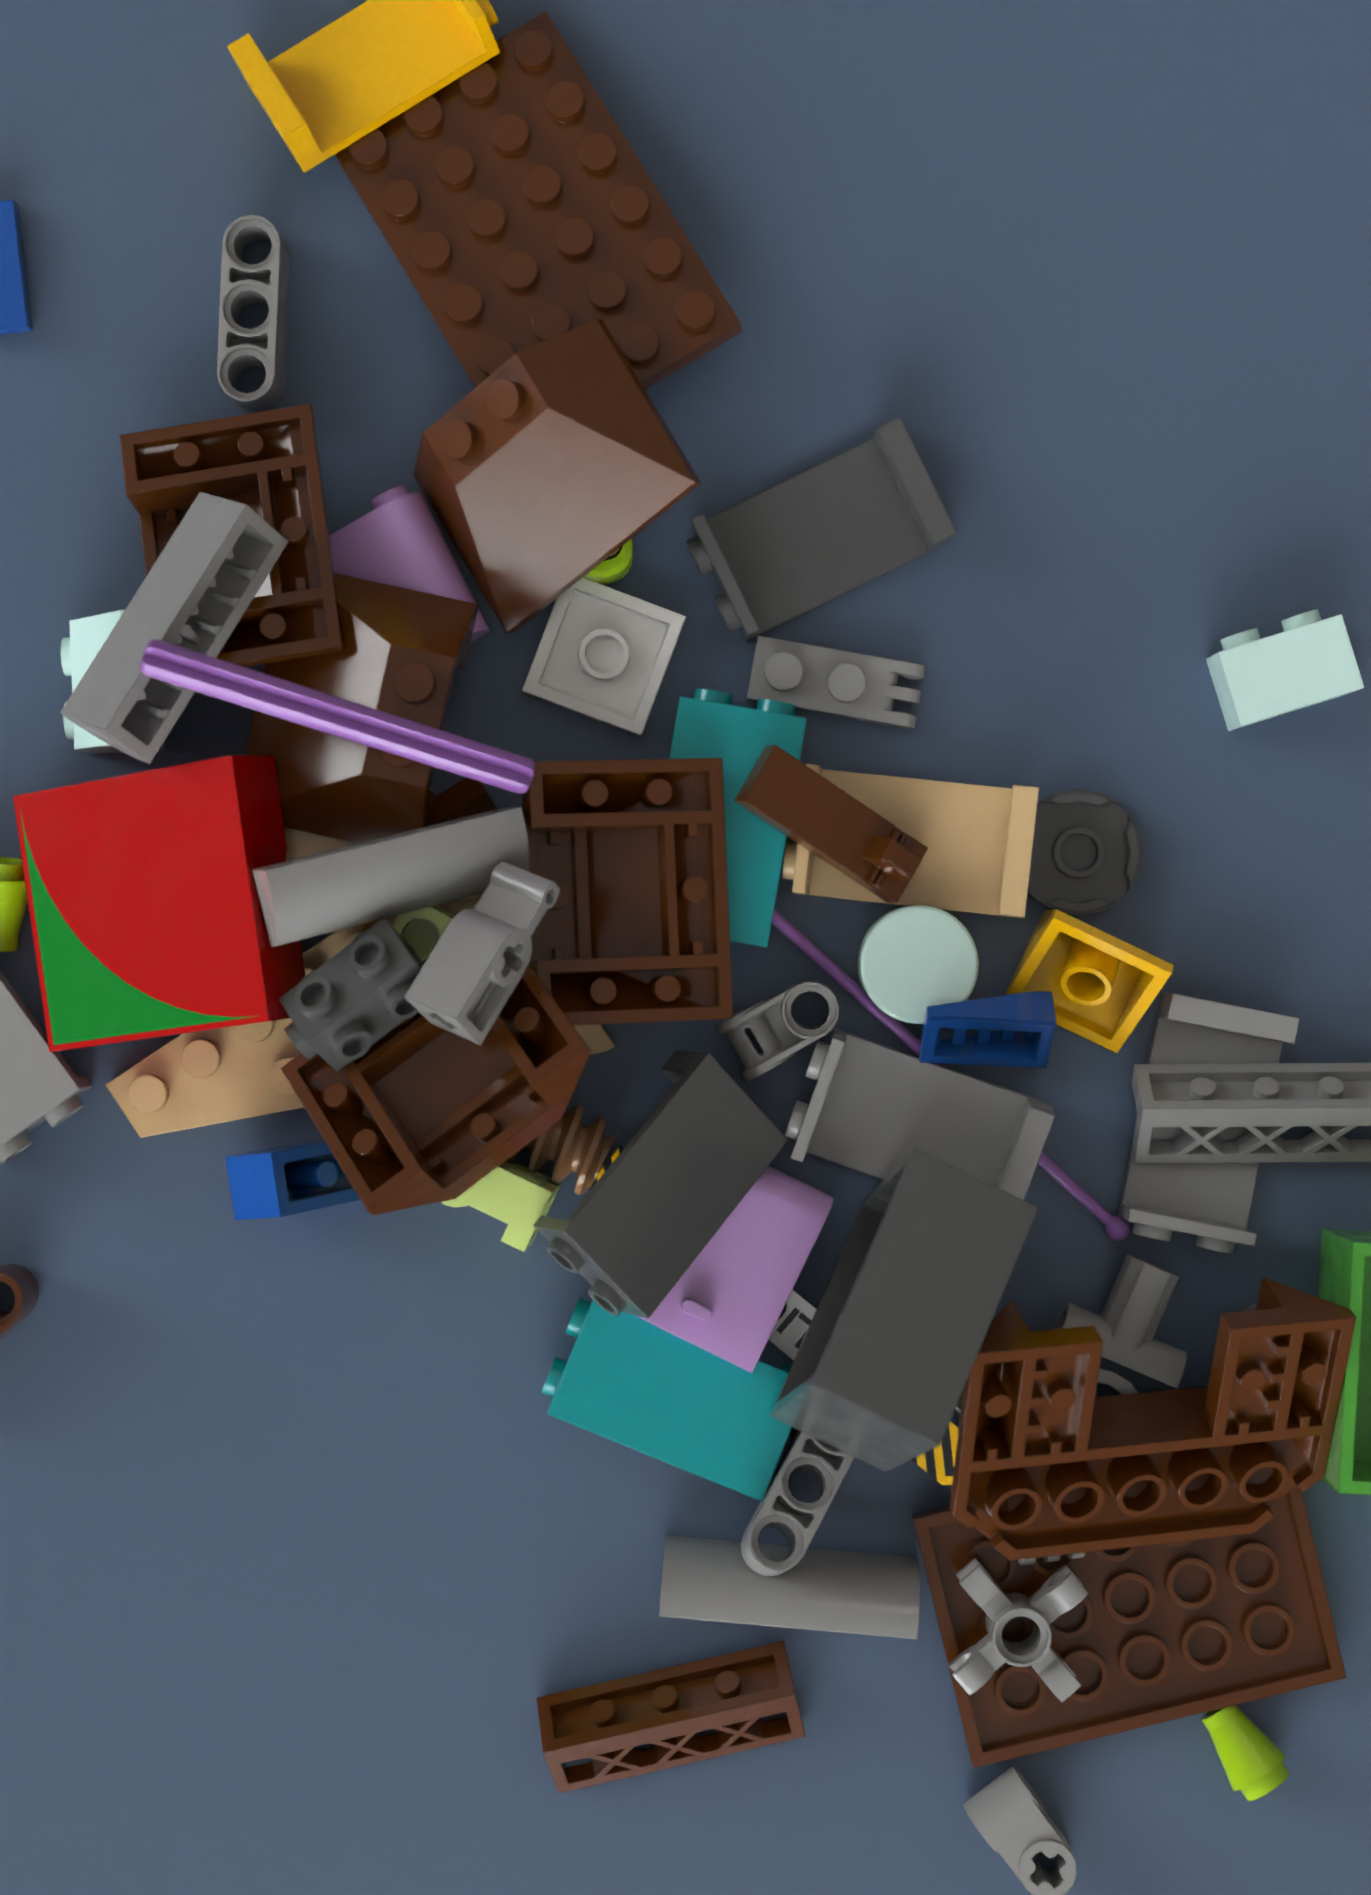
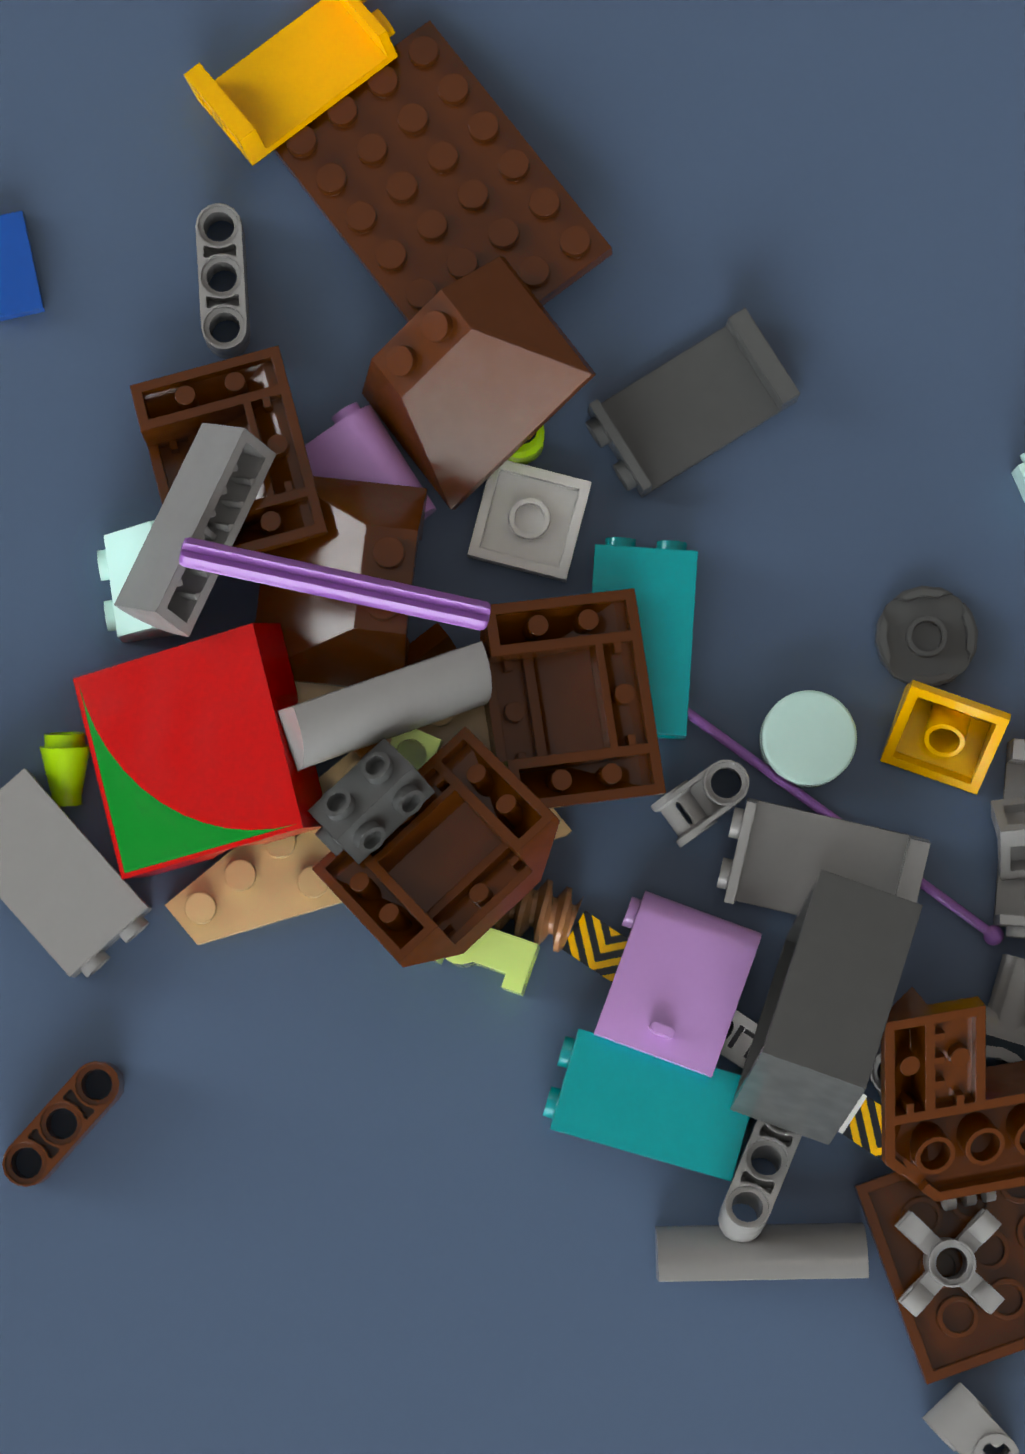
camera: 10 degrees left, 5 degrees down
(286, 1181) = (329, 962): blue slope -> none
(483, 954) = (465, 758): light grey piece -> none
(666, 1189) = (627, 934): dark grey panel -> none
(668, 1711) = (674, 1365): reddish brown fence -> none
(831, 824) = (726, 632): reddish brown hinge -> none
(833, 681) = (715, 521): light grey hinge -> none
(973, 834) = (792, 642): tan panel -> none
(1025, 1036) = (887, 798): blue slope -> none

